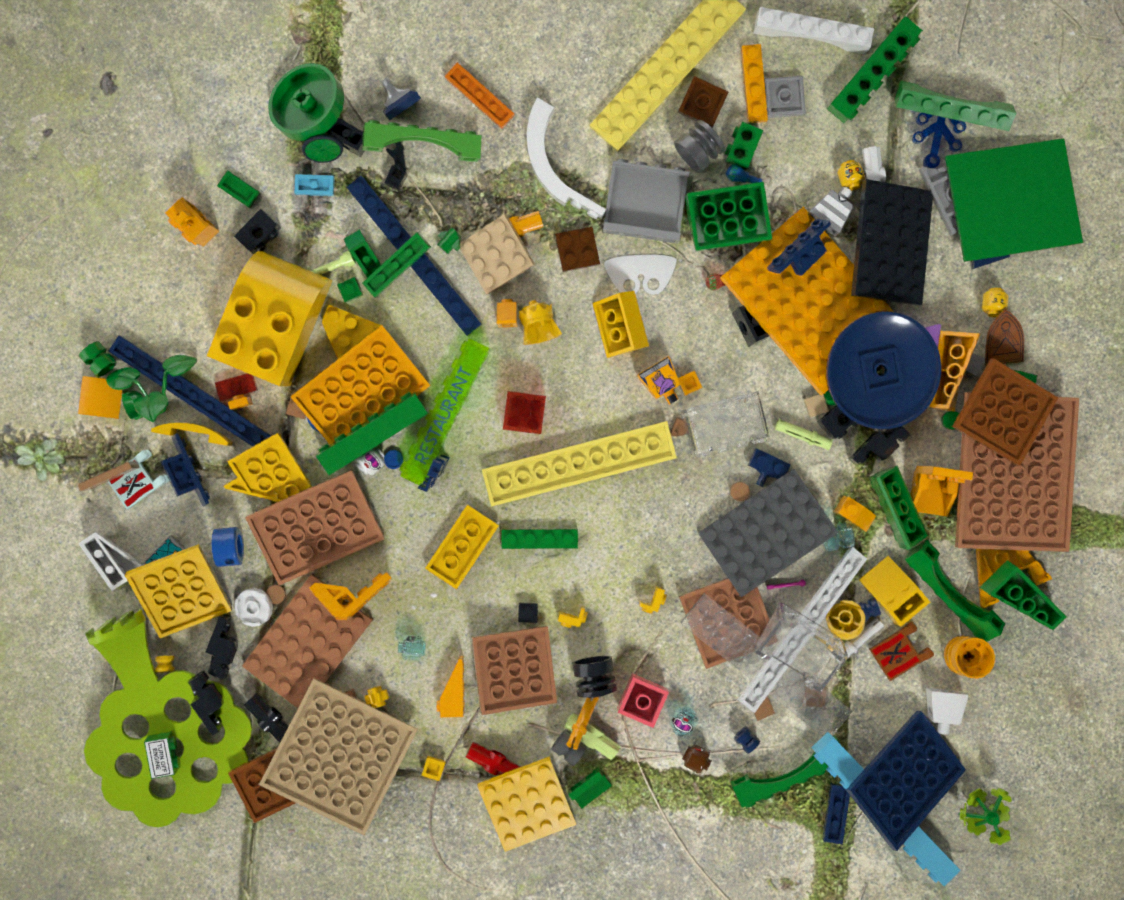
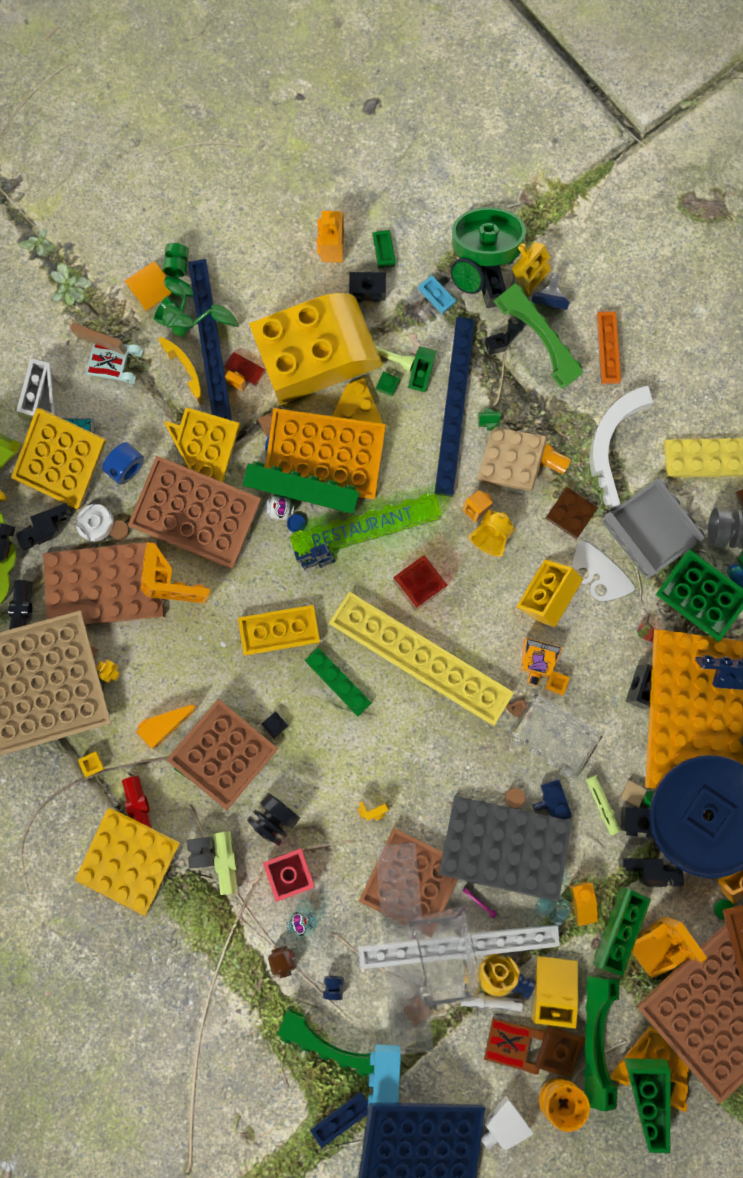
camera: 40 degrees right, 10 degrees down
(182, 474) = (146, 387): dark blue bracket -> none
(361, 92) = (532, 266): none -> yellow plate
(396, 264) = (437, 397): green plate -> none
(412, 648) = (169, 663): clear light blue head -> none
(568, 620) = (297, 760): yellow bracket -> none
(579, 728) = (223, 844): light orange pin -> none
(589, 788) = (183, 899): green panel -> none
(764, 710) = (369, 977): medium nougat tile -> none
(934, 626) = (559, 1052): none -> reddish brown plate

